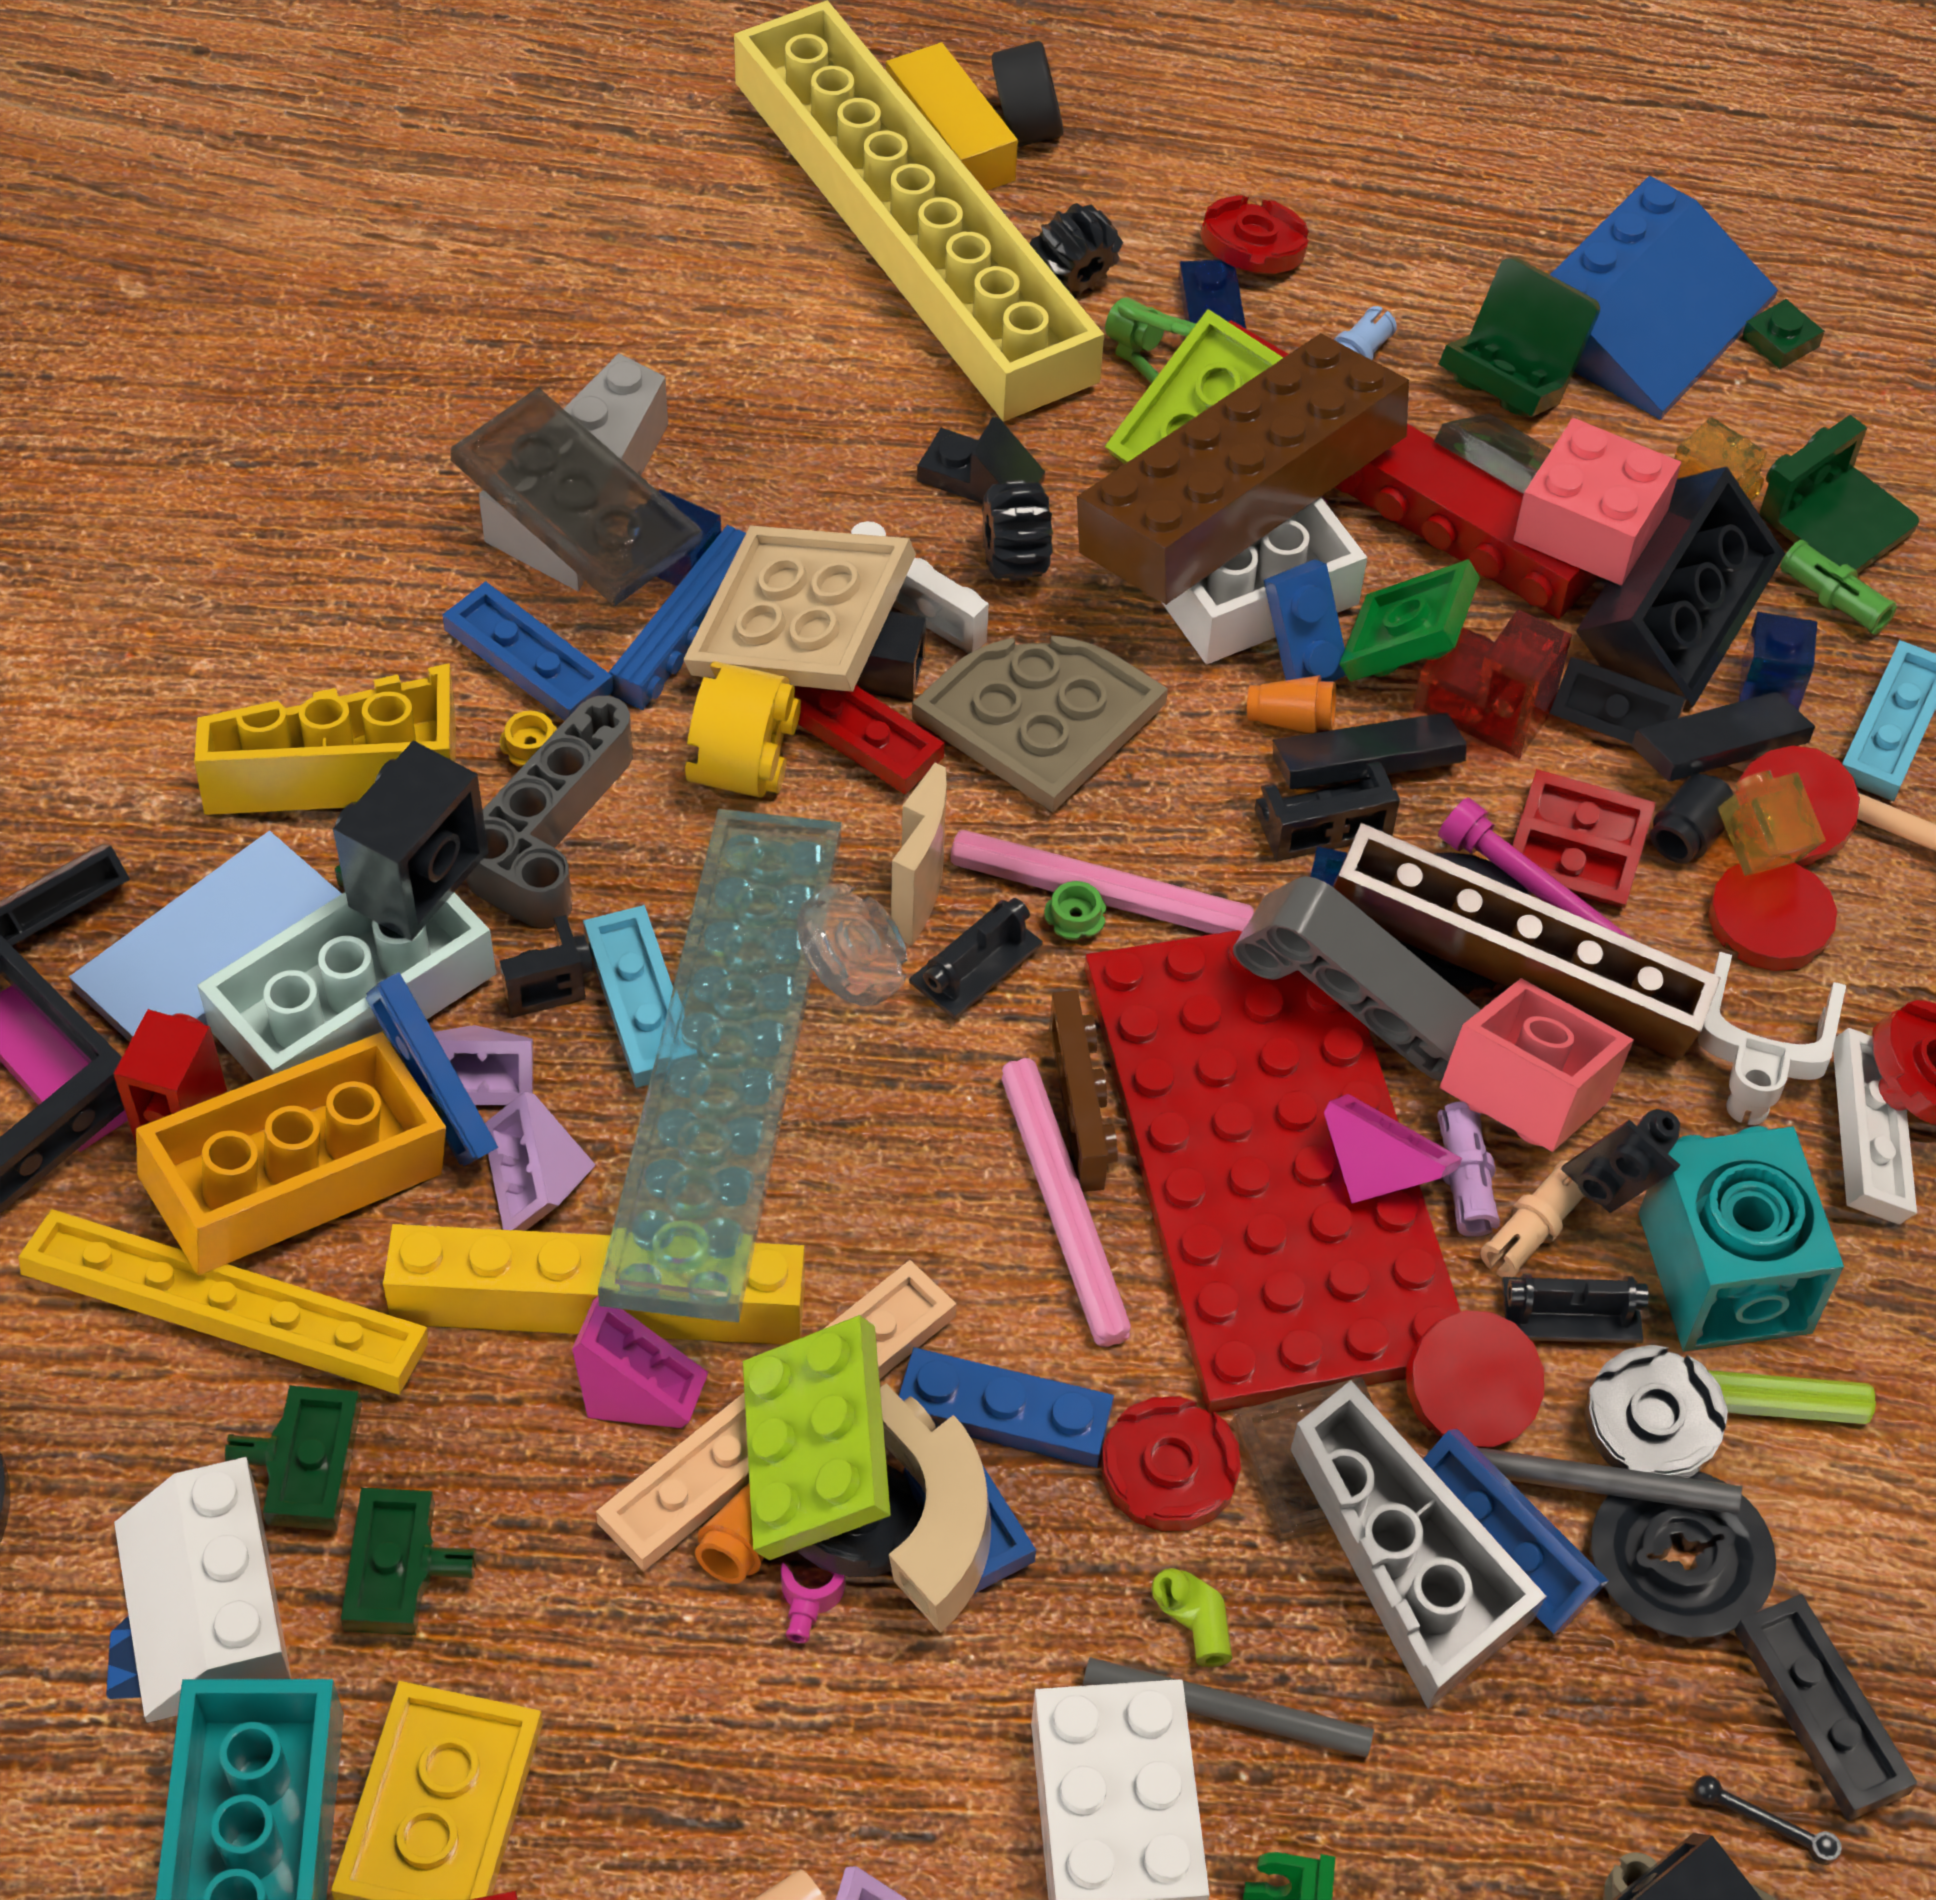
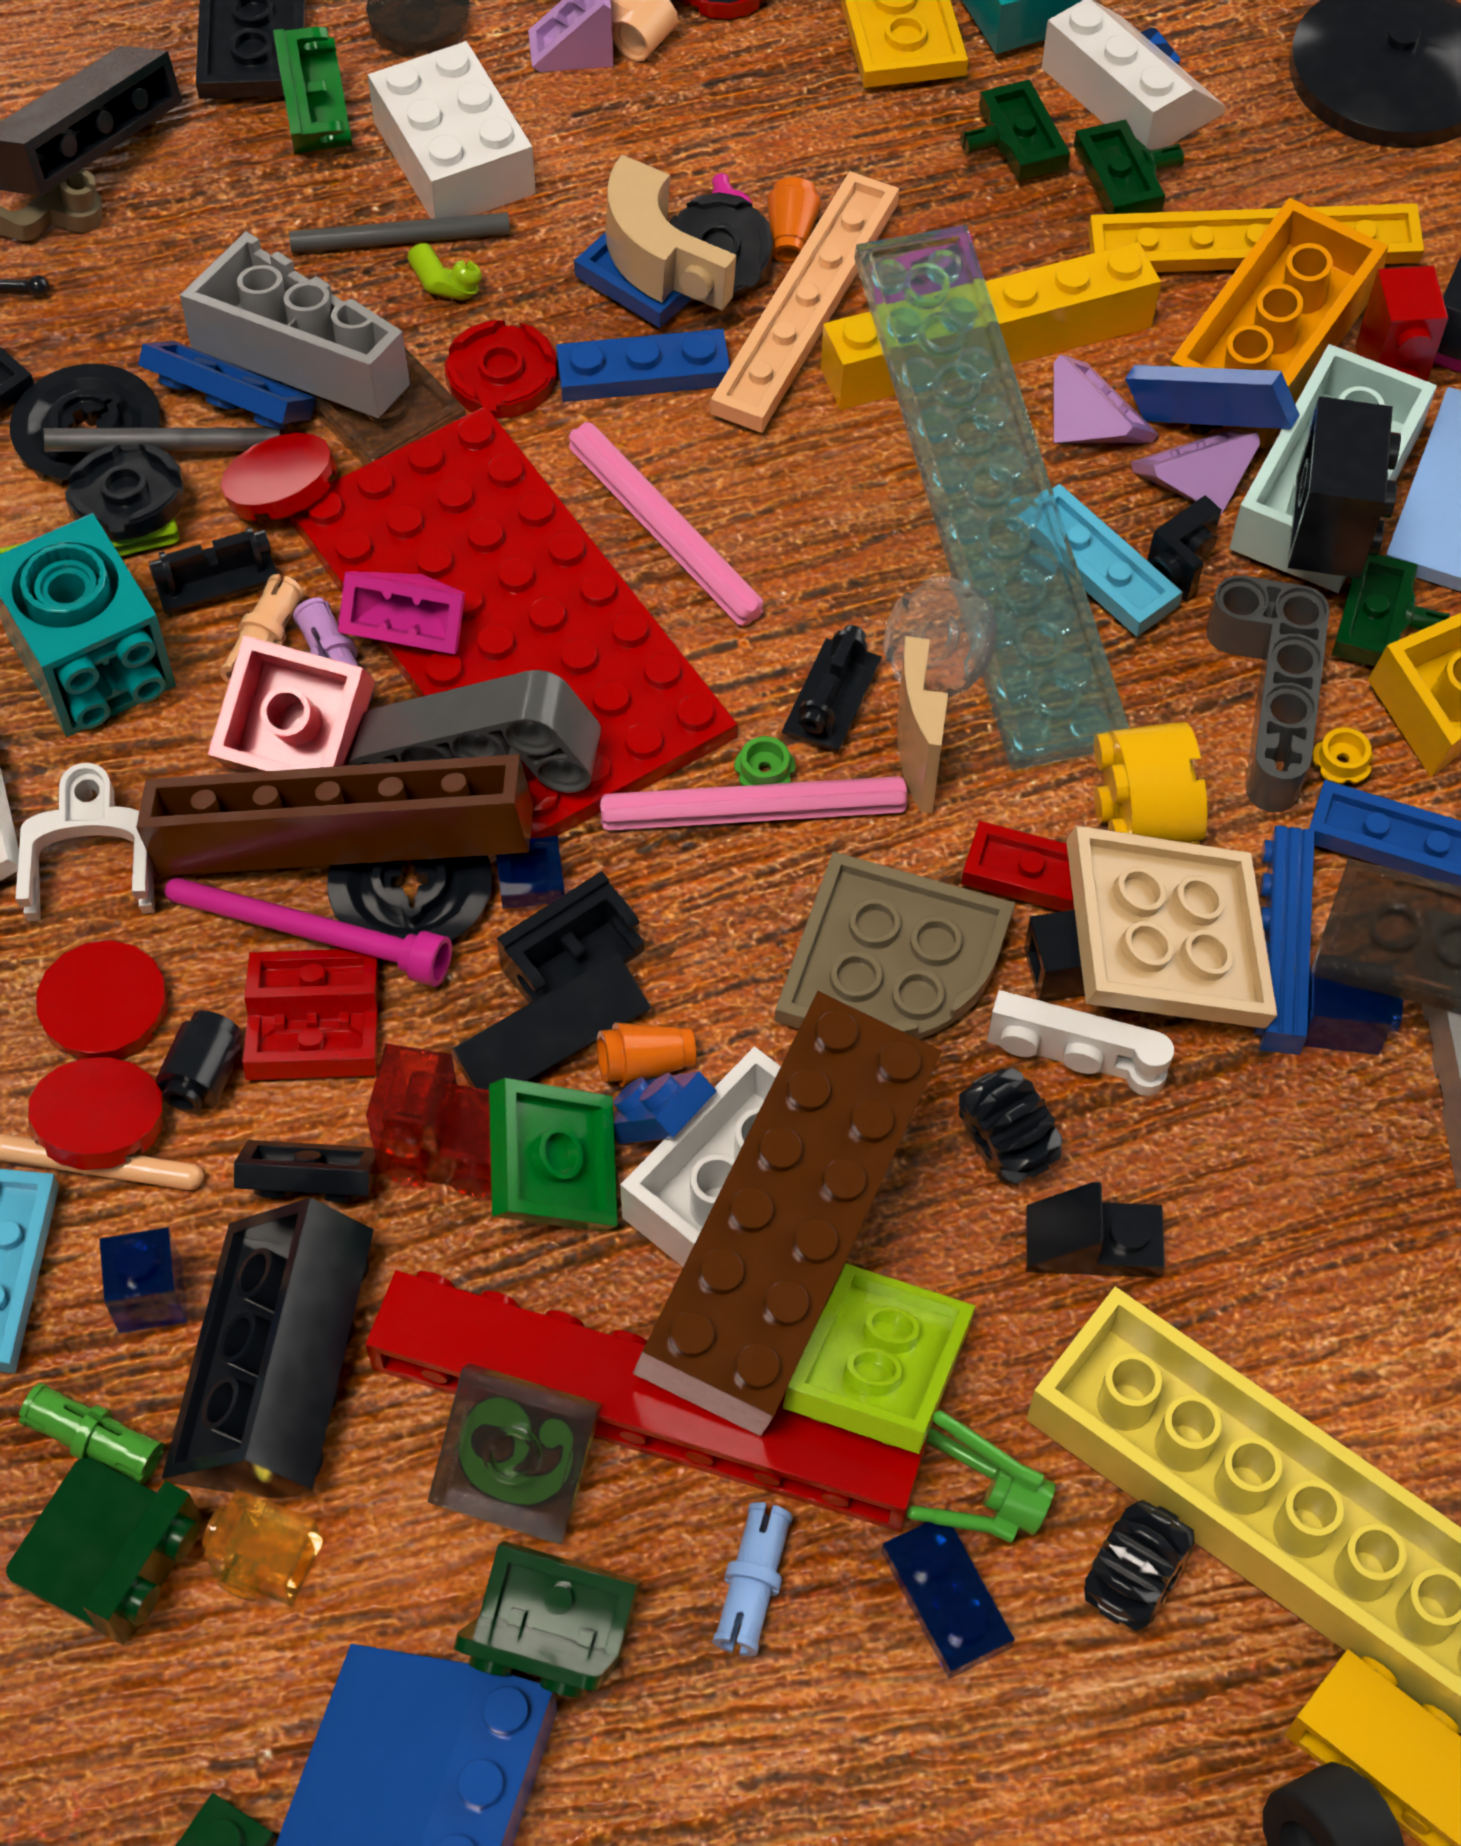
camera: 160 degrees right, 5 degrees up
(815, 1438) = (762, 234): lime plate -> none
(1081, 1090) = (688, 598): reddish brown plate -> none
(1255, 236) = (942, 1727): red tile -> none
(1596, 501) = (384, 1341): coral brick -> none
(1626, 1160) = (189, 625): black hinge -> none
(1722, 736) = (187, 1153): black tile -> none
(1770, 822) = (115, 1032): clear yellow brick -> none

